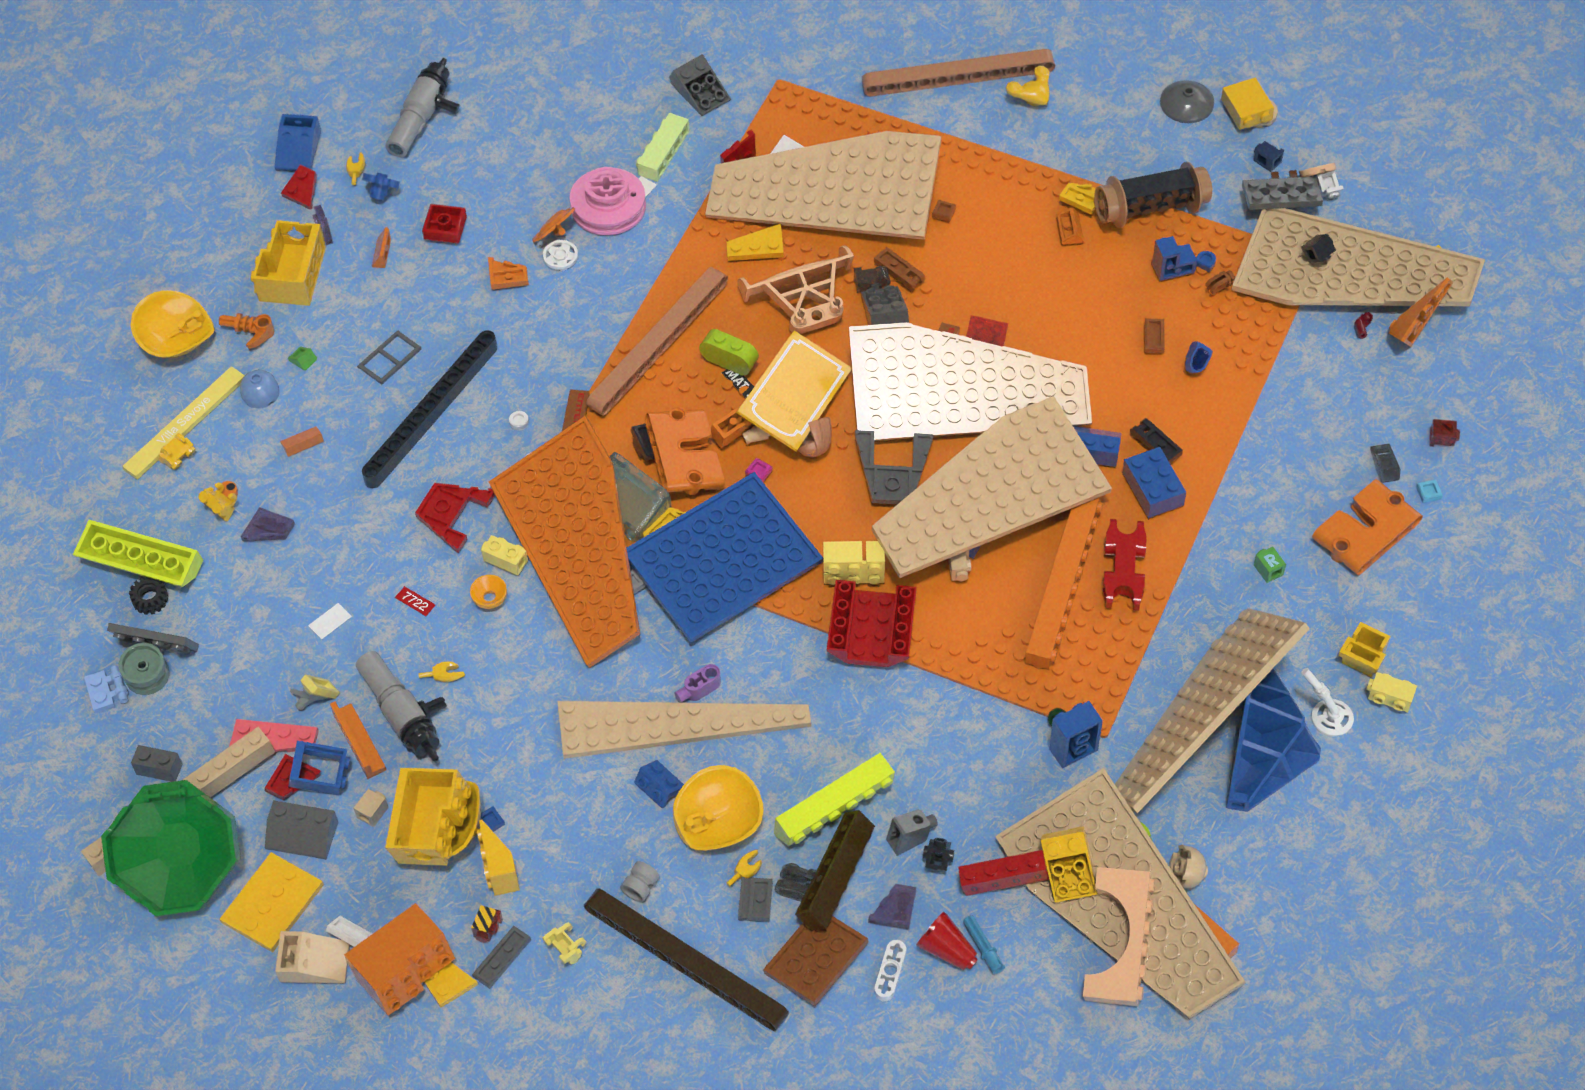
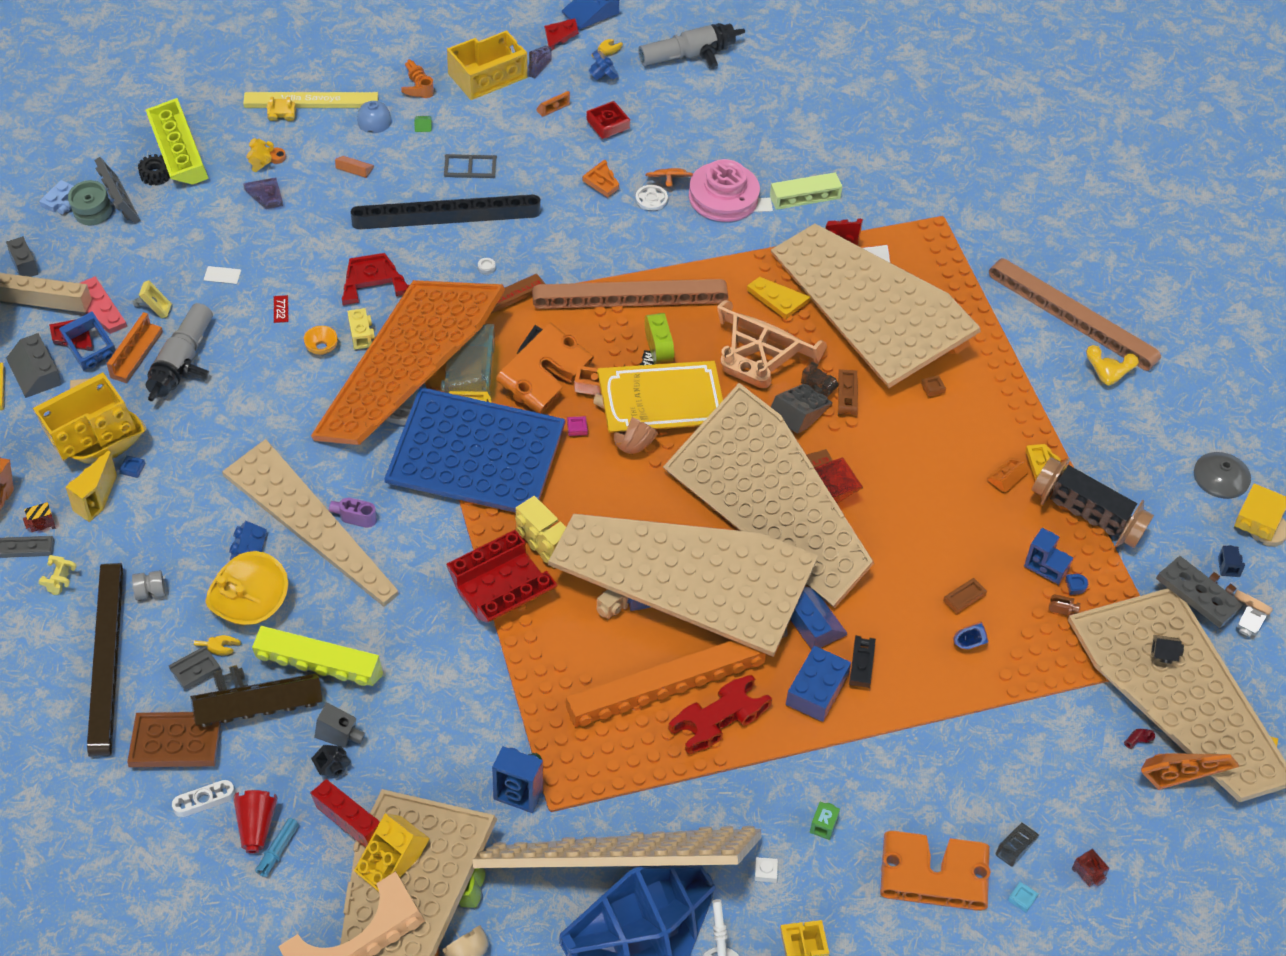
camera: 45 degrees right, 5 degrees down
(170, 324) = (375, 39): yellow piece -> none
(440, 672) = (231, 359): yellow hand -> none
(699, 85) = (883, 175): dark grey slope -> none
(891, 483) = (645, 507): dark grey wing -> none
(895, 908) = (262, 765): clear purple wing -> none

